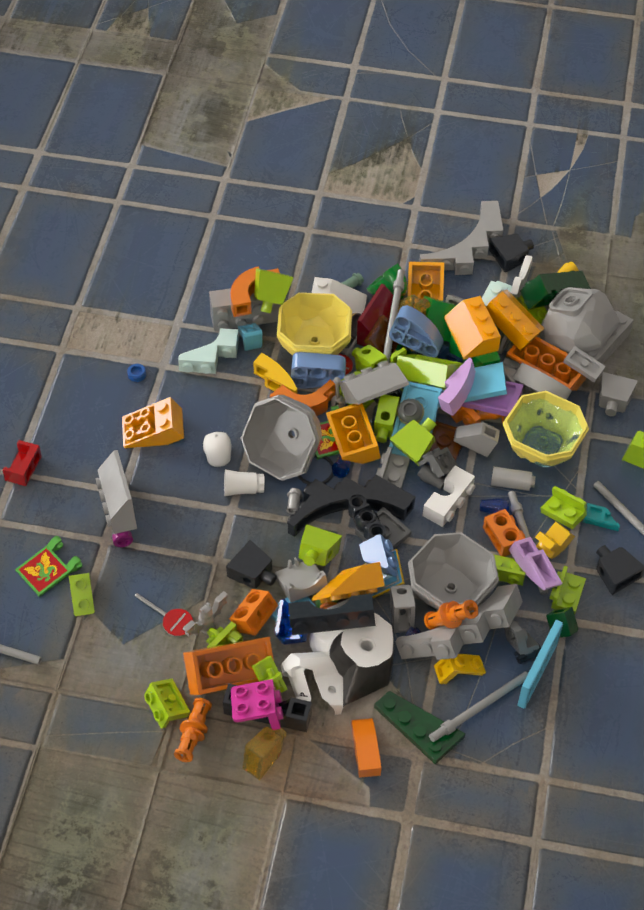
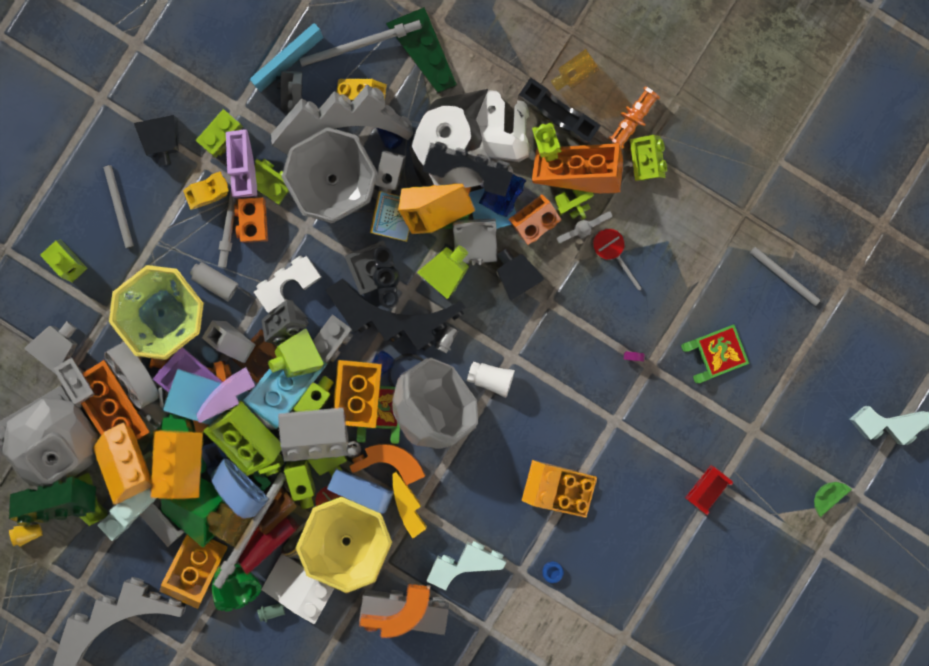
camera: 165 degrees left, 35 degrees up
(81, 594) = (693, 310): lime bracket -> none
(116, 495) = (627, 402): light grey slope -> none
(217, 448) = (502, 426): white helmet -> none
(251, 336) = (412, 573): medium azure slope -> none
(257, 701) = (571, 108): dark pink bracket -> none
(271, 288) = (376, 601): lime torso -> none
(366, 747) = (481, 43): orange slope -> none
(379, 550) = (391, 228): slope -> none
(410, 410) = (287, 391): dark grey piece -> none
(451, 614) = (354, 121): orange piece -> none
(494, 505) = (245, 254): clear blue cone -> none
(510, 250) = (71, 590): black torso -> none
(519, 282) = (82, 537): white tile -> none
(565, 508) = (178, 225): lime bracket -> none
(566, 616) = (242, 100): dark green panel -> none
(600, 517) = (146, 207): teal tile -> none

